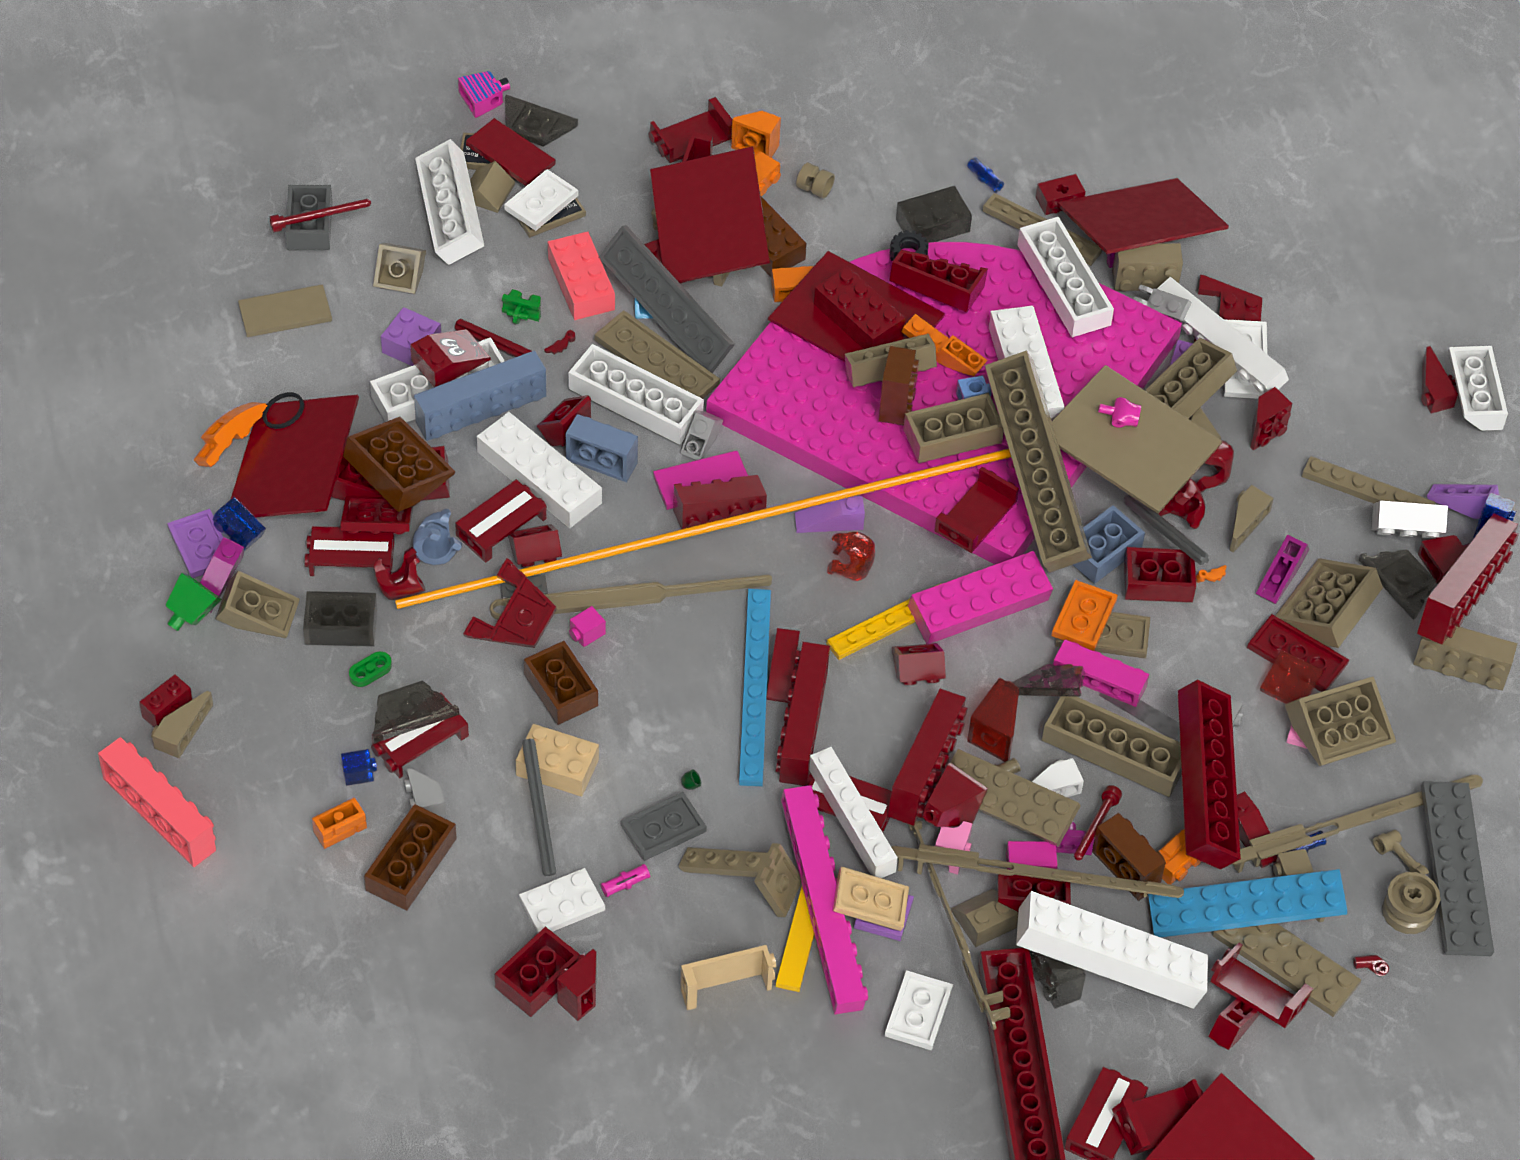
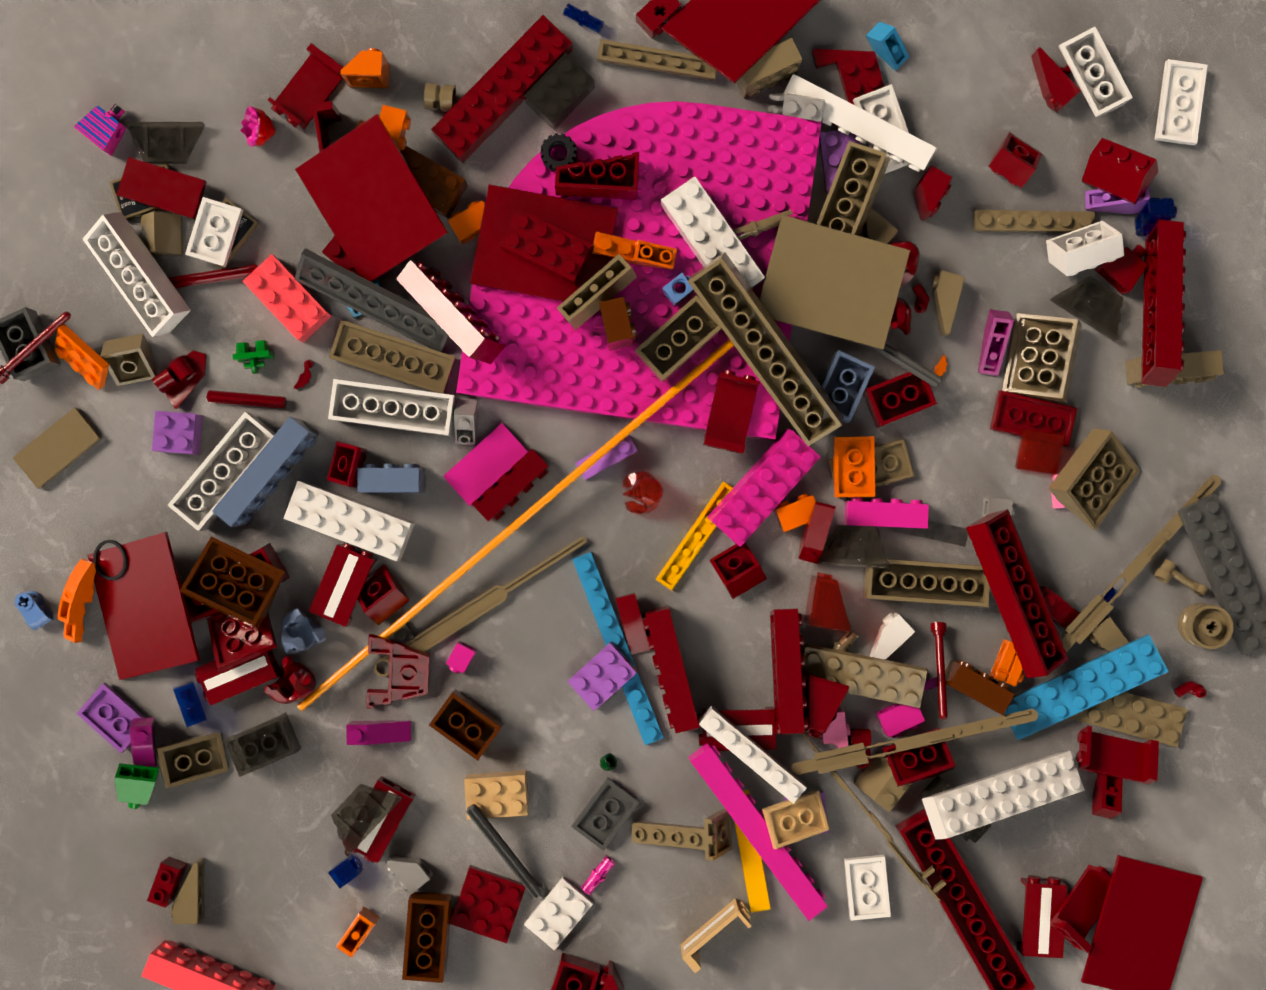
camera: 20 degrees left, 35 degrees up
(180, 423) = (35, 610): none -> medium blue piece
(238, 523) = (134, 692): clear blue brick -> none
(287, 555) = (189, 703): none -> clear blue brick
(357, 244) = (81, 357): none -> orange plate
(369, 669) = (309, 773): green plate -> none
(441, 299) = (181, 377): none -> dark red panel
(447, 355) = (220, 452): dark red slope -> none
(461, 657) = (377, 732): none -> magenta slope
(490, 863) = (488, 904): none -> dark red plate
(515, 235) = (212, 276): none -> dark red axle
(629, 140) = (257, 127): none -> hair
(727, 698) = (602, 676): none -> medium lavender plate
(740, 327) = (451, 312): none -> brick
(872, 196) = (501, 89): none -> dark red brick
(972, 879) = (861, 736): none -> dark red piece
(1006, 636) = (795, 513): none -> orange brick
(1017, 648) = (816, 532): none -> dark red slope
(1065, 277) = (707, 124): white brick -> none
(1074, 374) = (763, 225): none -> dark tan pin
(1123, 412) = (818, 264): dark pink piece -> none
(1223, 508) = (922, 299): none -> dark red arm
(1278, 296) = (888, 45): none -> dark azure slope
(1367, 430) = (1015, 160): none -> dark red slope
(1472, 467) = (1119, 170): none -> dark red slope

